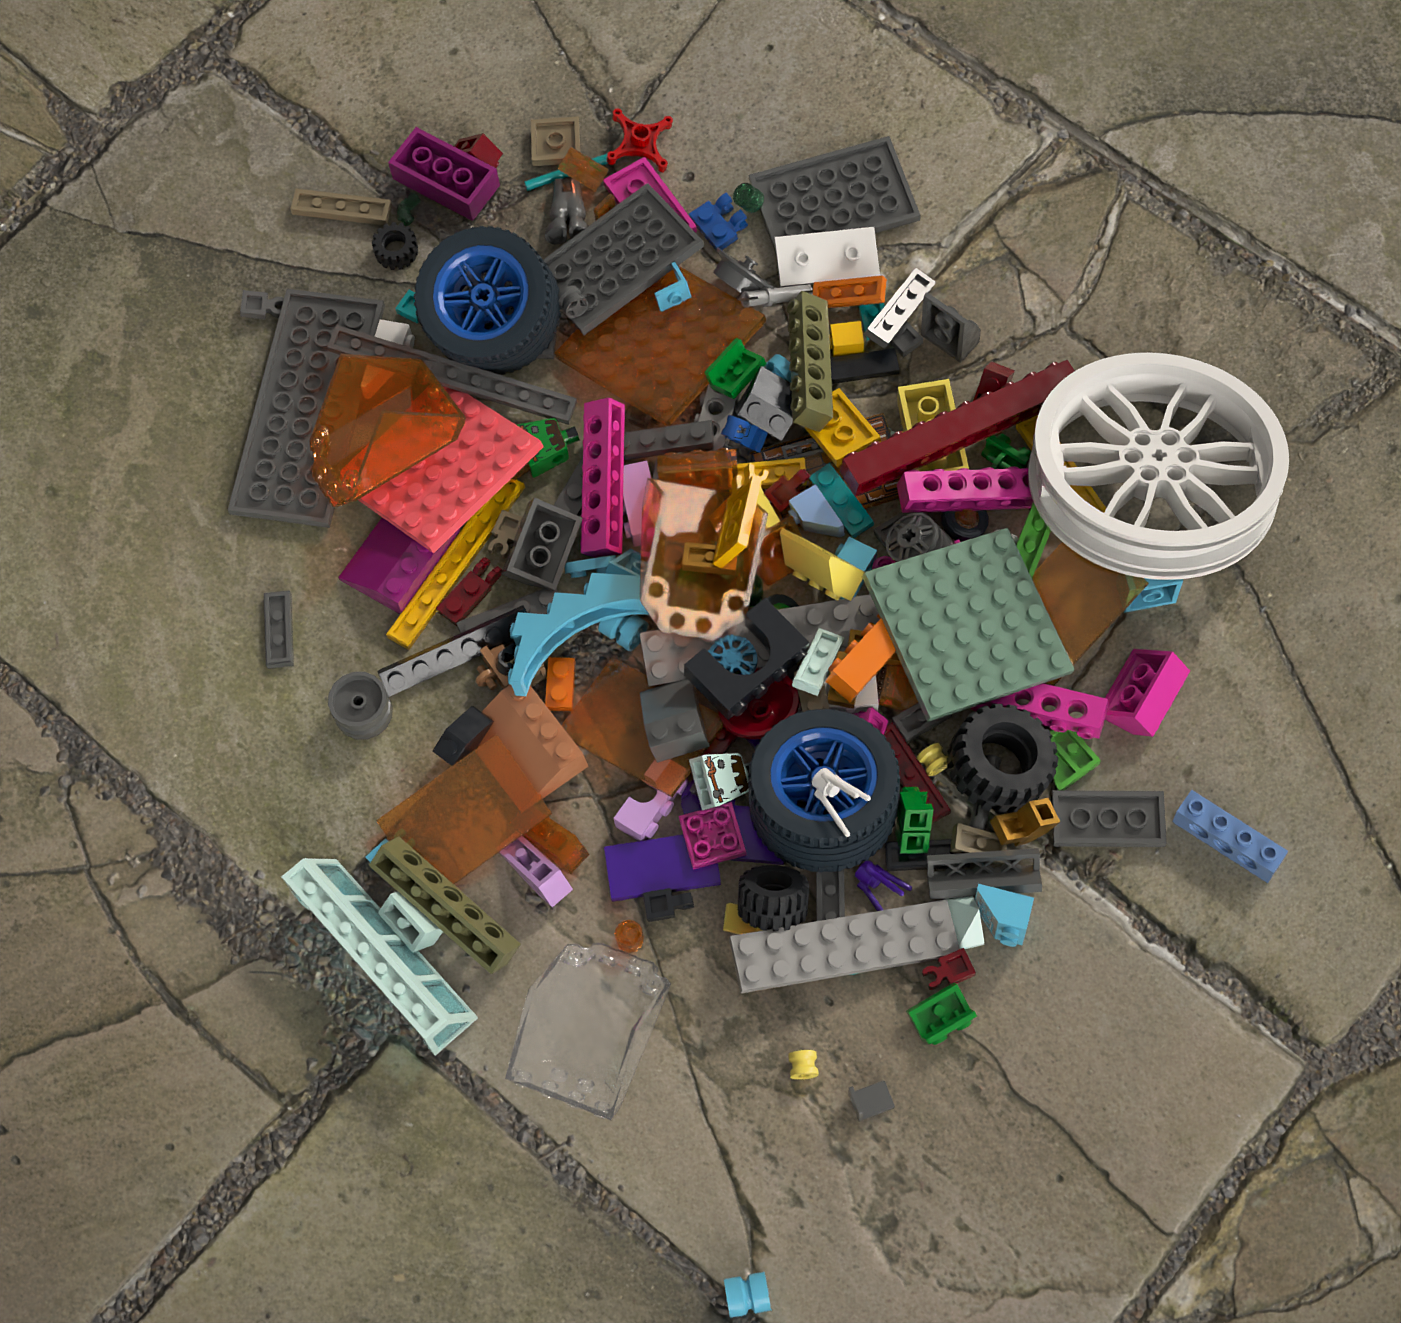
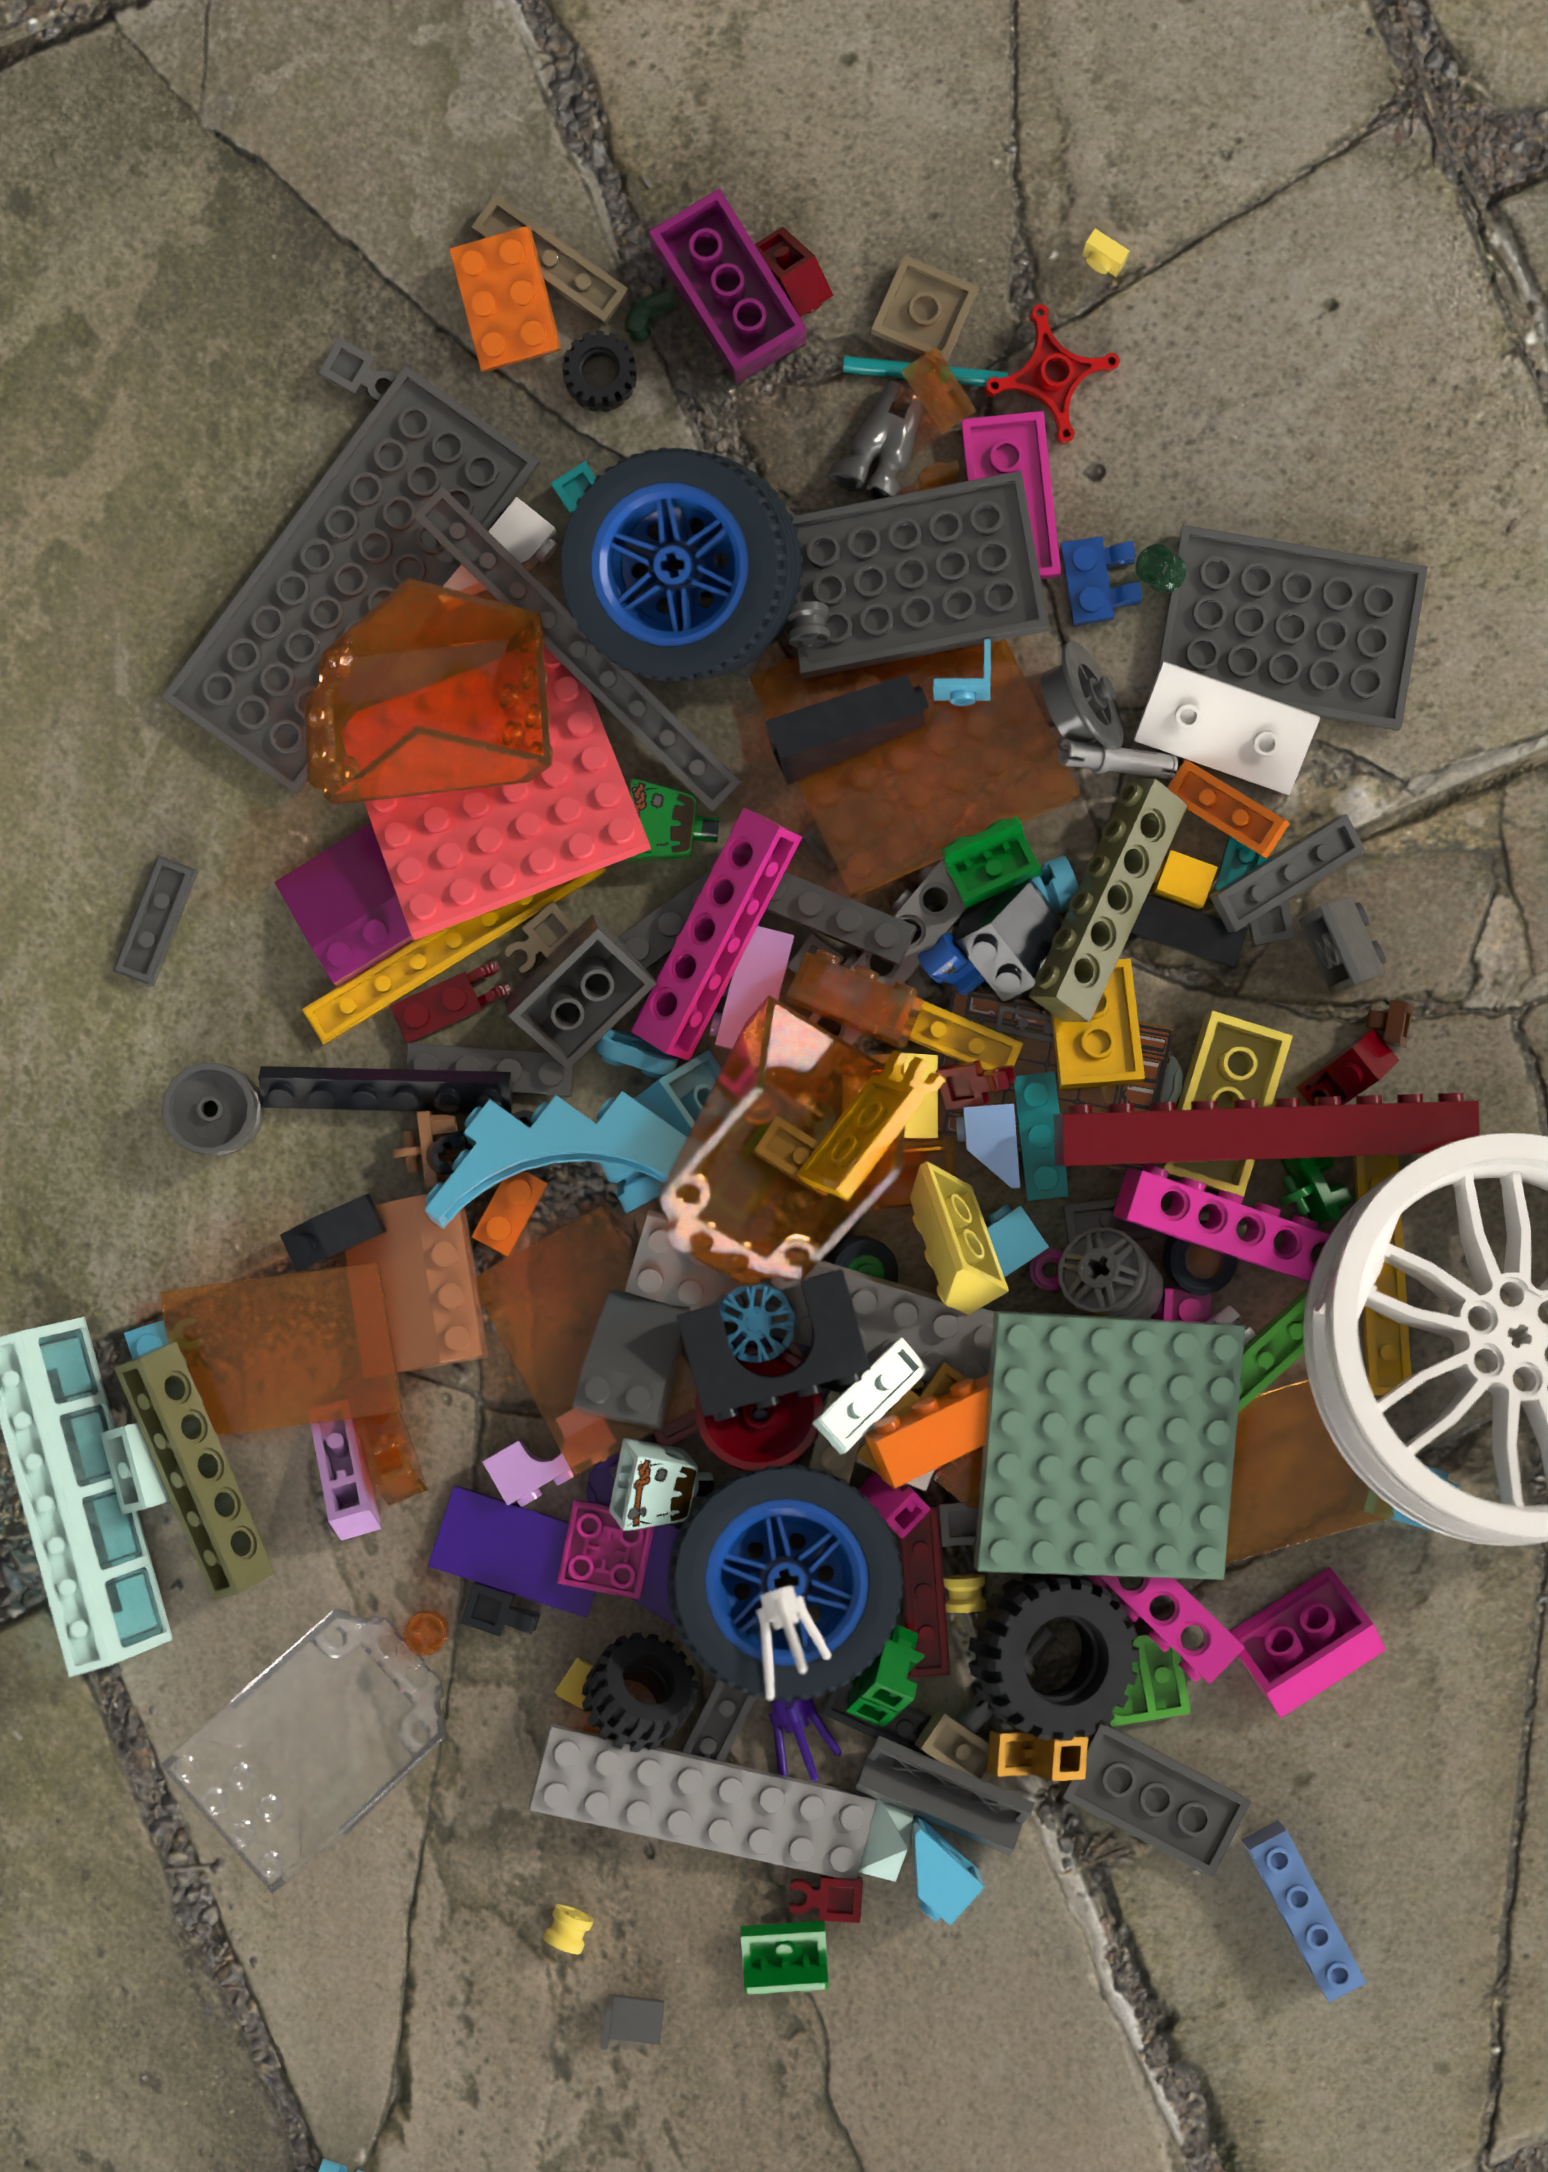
camera: 20 degrees right, 20 degrees up
(326, 234) = (505, 299): none -> orange plate
(617, 341) = (844, 726): none -> black slope
(637, 73) = (1104, 254): none -> light yellow plate
(1001, 354) = (1394, 1023): none -> reddish brown tile

